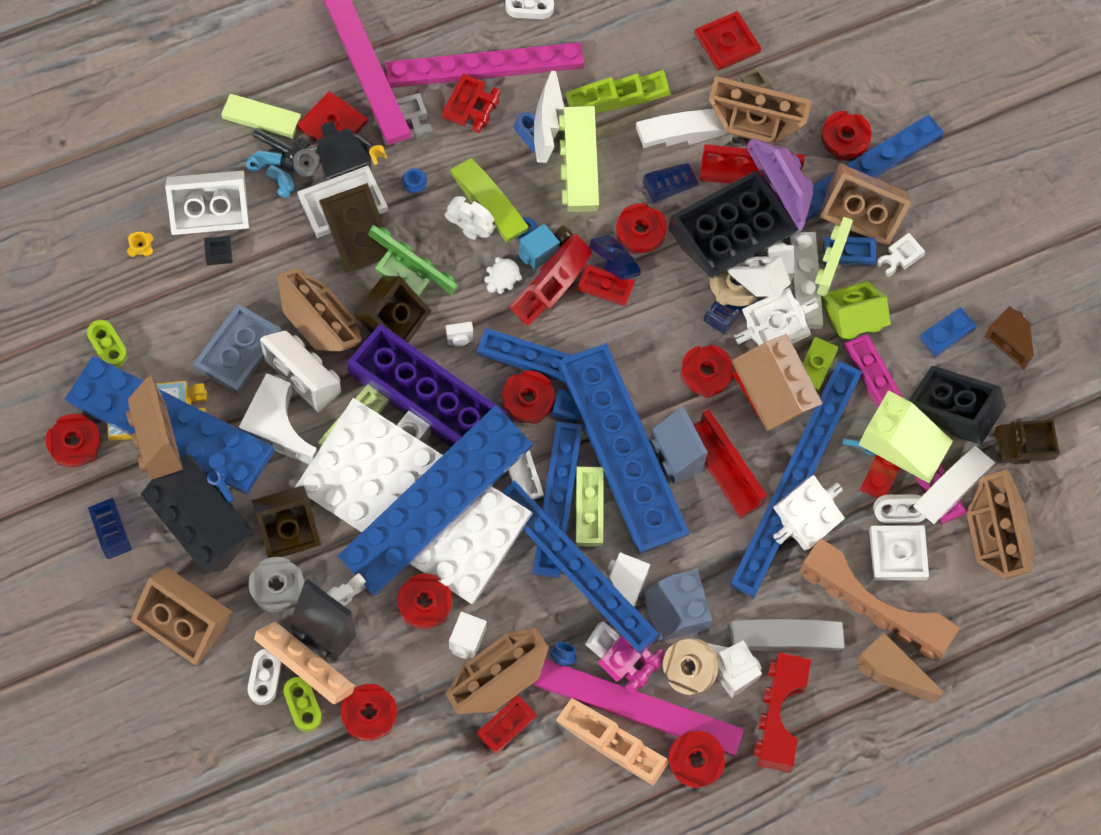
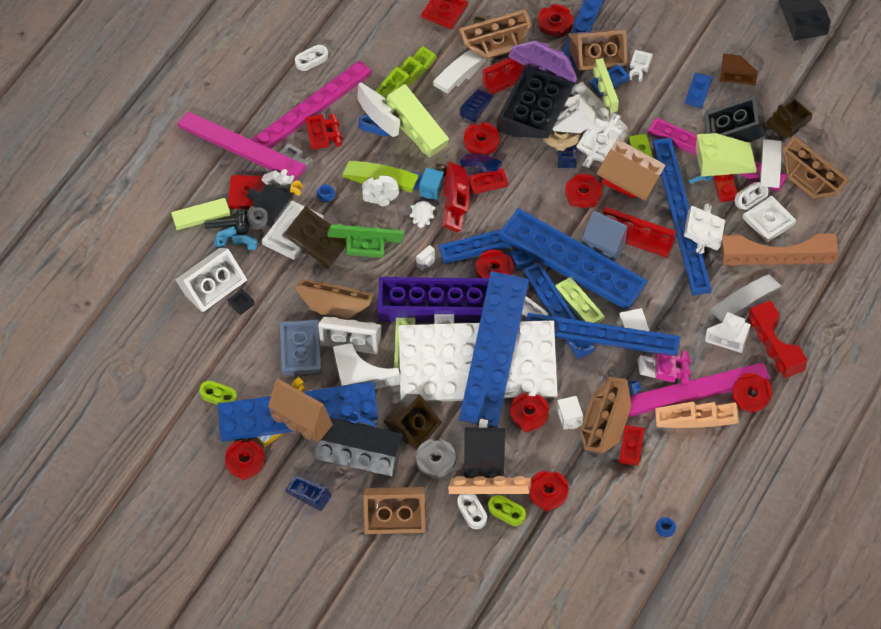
camera: 30 degrees left, 10 degrees down
(137, 238) = (188, 323): yellow plate -> none
(369, 129) = (277, 179): none -> white plate
(393, 306) = (371, 264): dark brown slope -> none
(678, 606) = (675, 318): sand blue slope -> none
(704, 660) = (702, 355): tan plate -> none
(856, 309) = (640, 107): lime slope -> none
(893, 668) = (817, 278): medium nougat slope -> none

